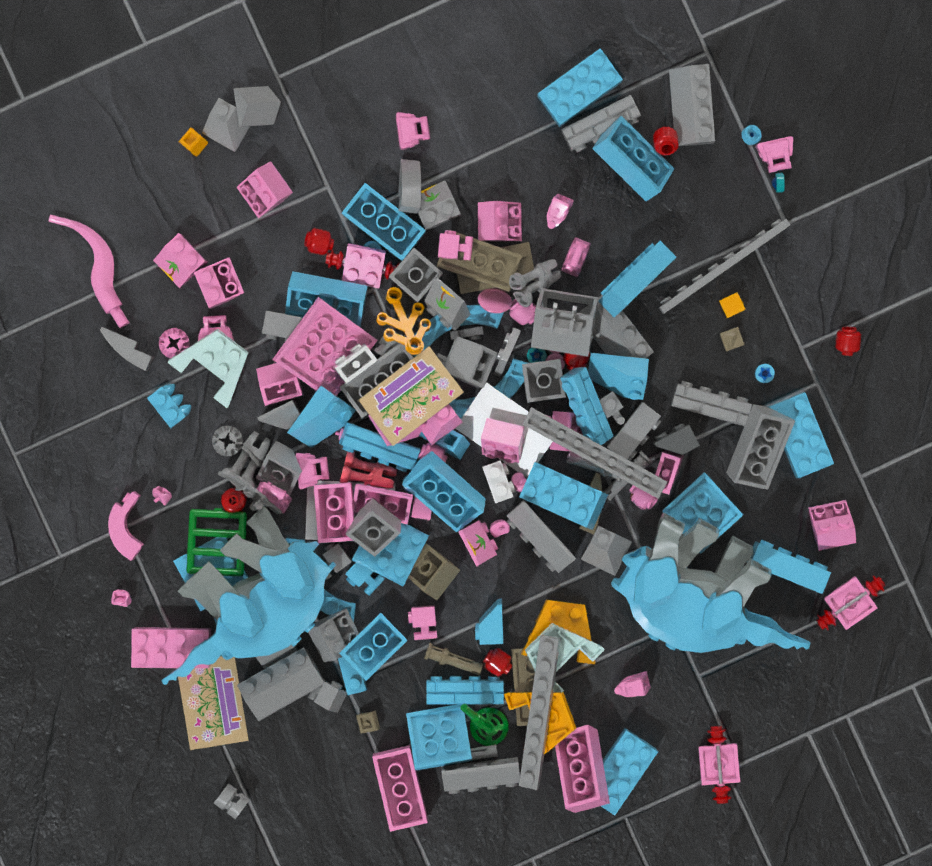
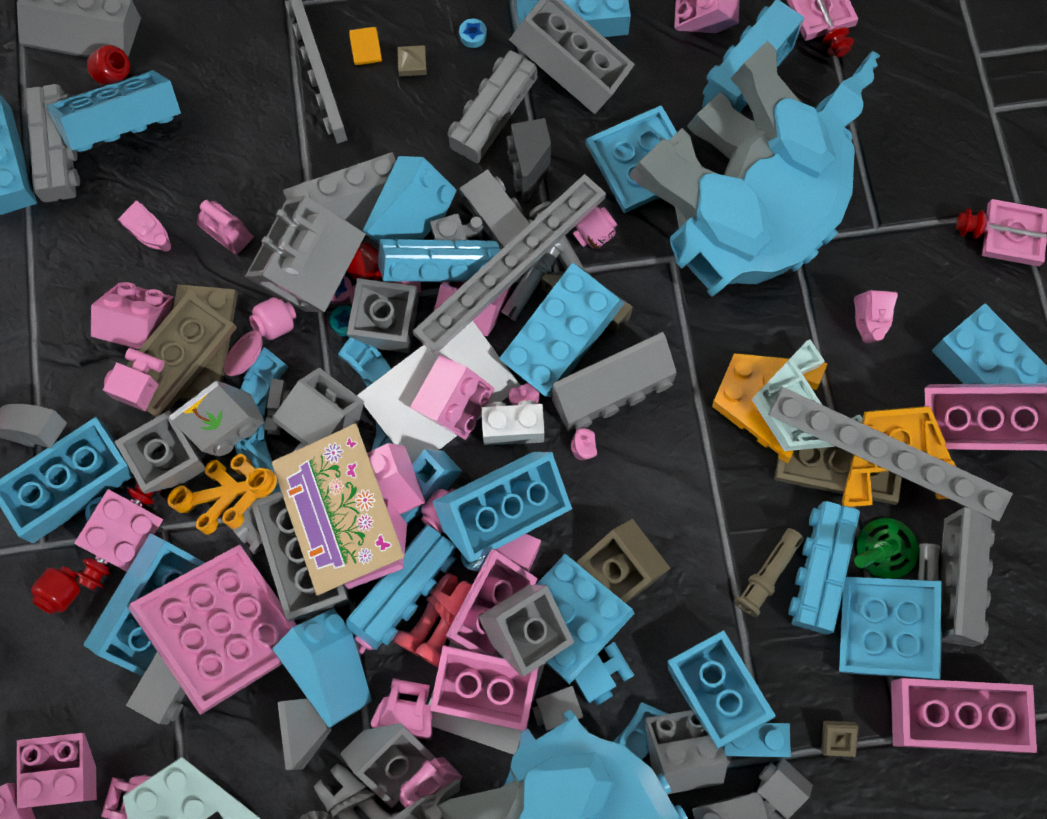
camera: 70 degrees left, 15 degrees down
(277, 384) = (251, 721): bright pink slope -> none
(354, 363) = (257, 583): white brick -> none
(423, 617) = (693, 597): bright pink brick -> none
(437, 206) = (76, 394): light grey slope -> none
(478, 542) = (597, 479): bright pink slope -> none
(490, 625) = (732, 483): medium azure slope -> none
(497, 662) = (791, 503): red head -> none
(504, 354) = (324, 357): light grey wing -> none
(542, 277) = (229, 276): light grey piece -> none
(606, 550) = (660, 302): light grey slope -> none
(636, 277) = (277, 141): medium azure brick -> none
(668, 468) = (560, 176): bright pink slope -> none

